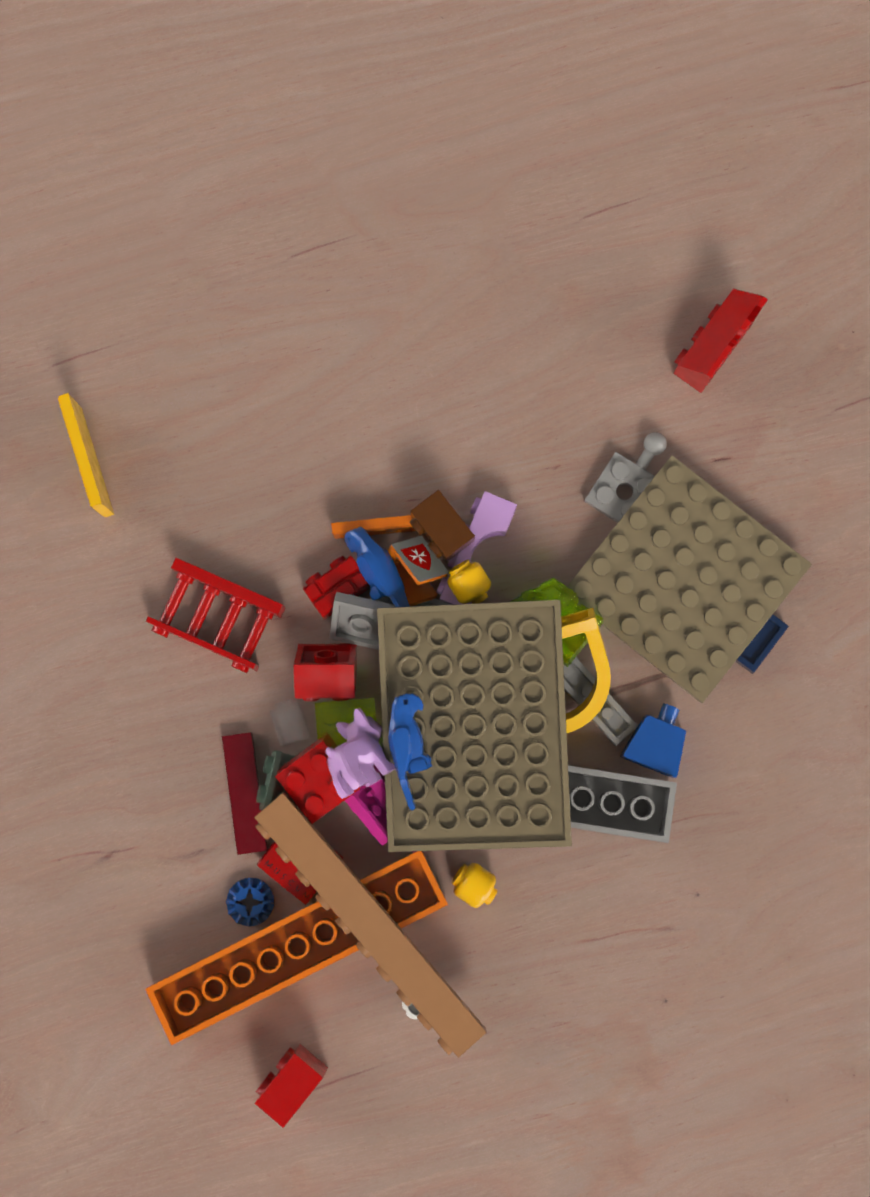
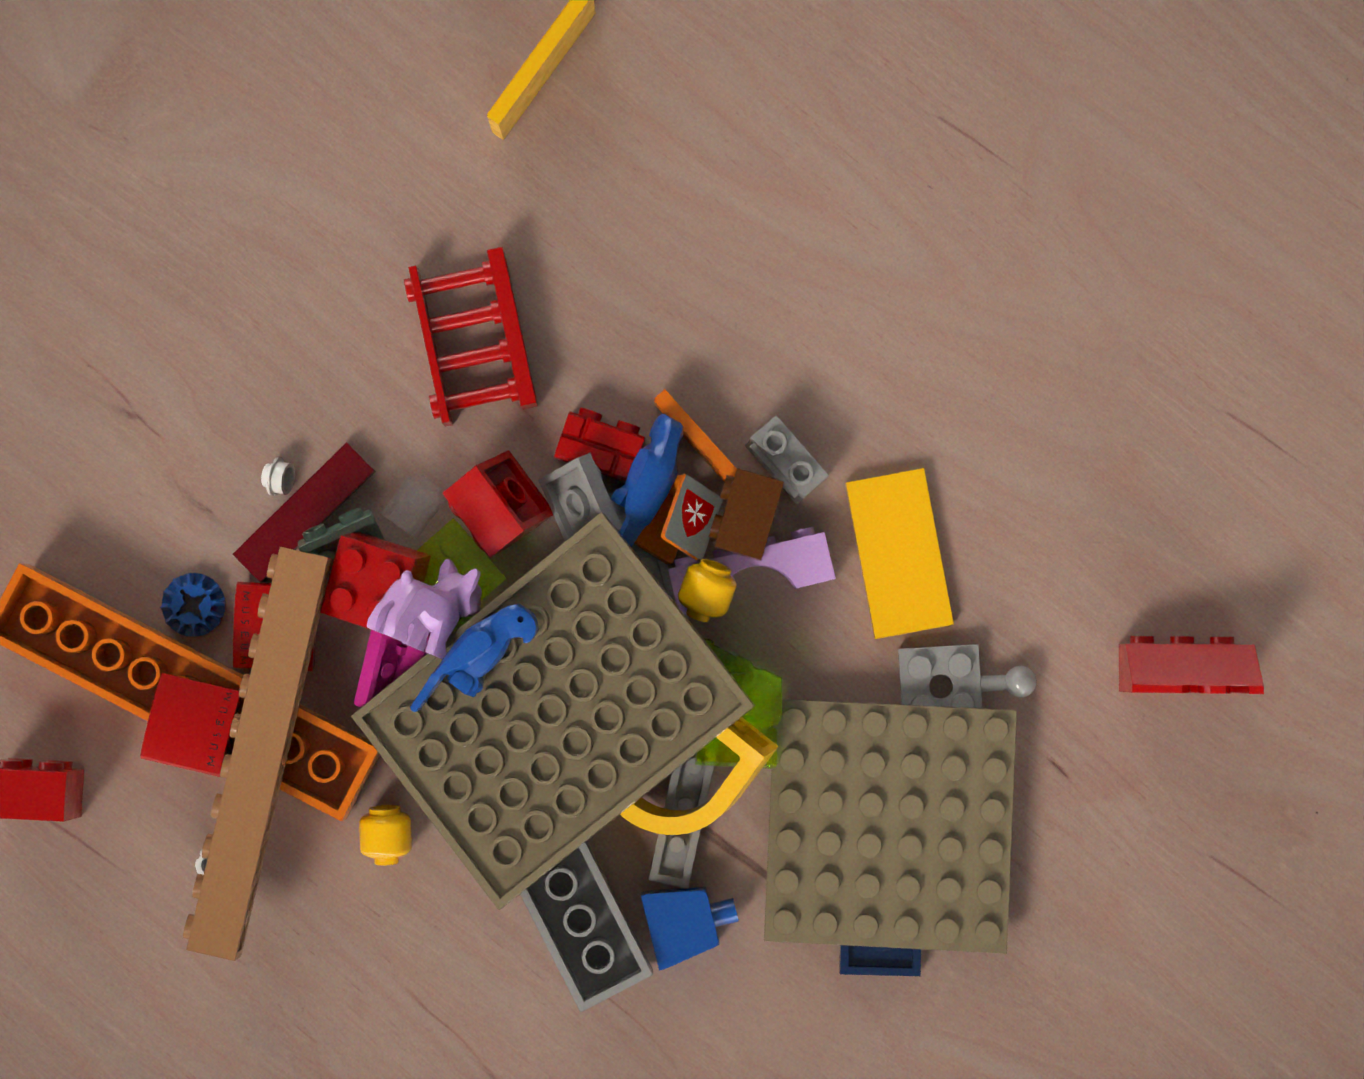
camera: 45 degrees right, 5 degrees up
(212, 793) = (278, 477): none -> white plate
(321, 954) = (190, 724): none -> red slope
(418, 483) = (786, 459): none -> light grey window
(528, 460) = (899, 553): none -> yellow tile

